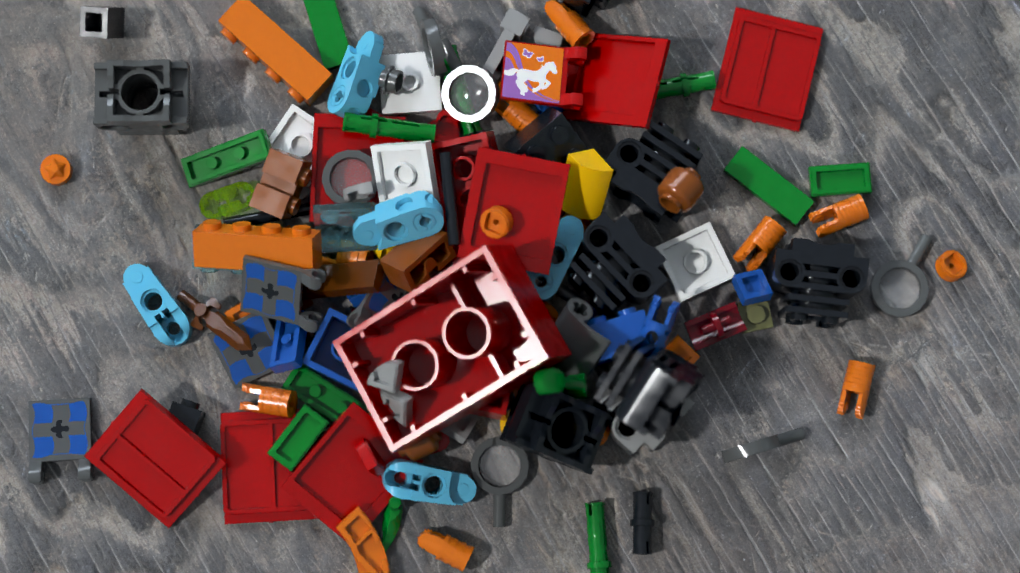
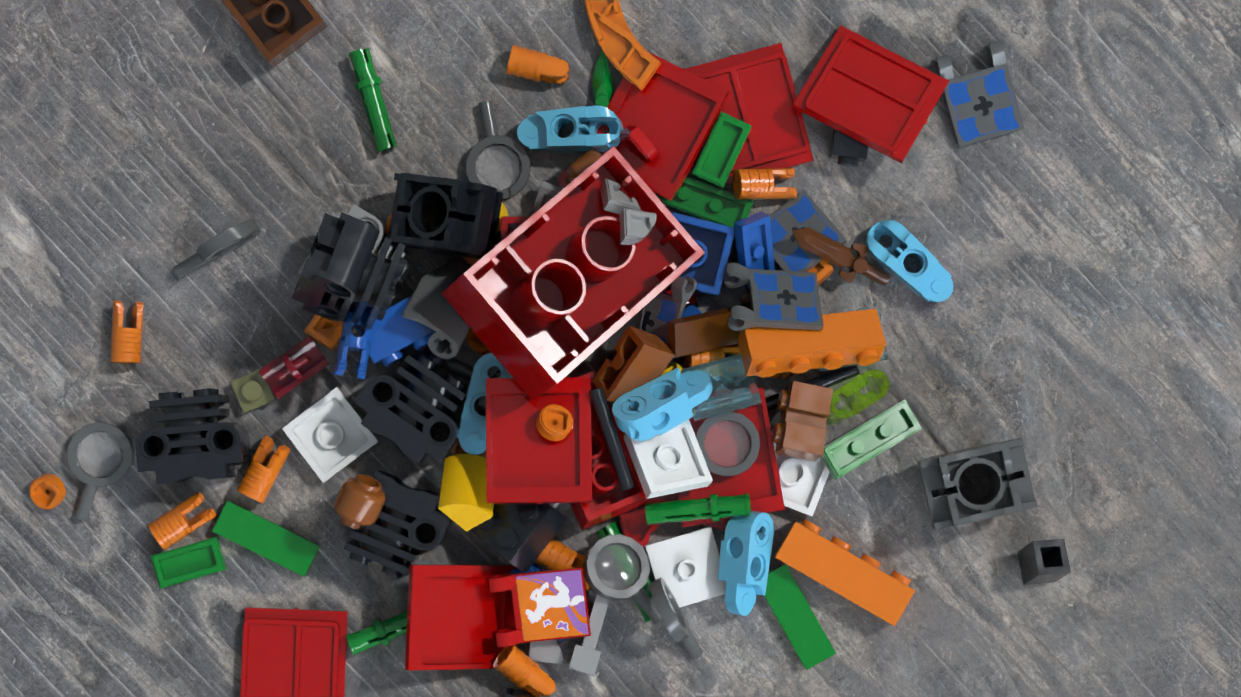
camera: 170 degrees right, 5 degrees up
(56, 169) = (1056, 388): orange tile -> none
(358, 192) = (715, 427): light grey tile -> none
(391, 80) = (708, 563): dark grey plate -> none
(554, 381) = (453, 256): green bar -> none
(642, 522) = (331, 138): black pin -> none
(752, 287) = (262, 419): blue plate -> none

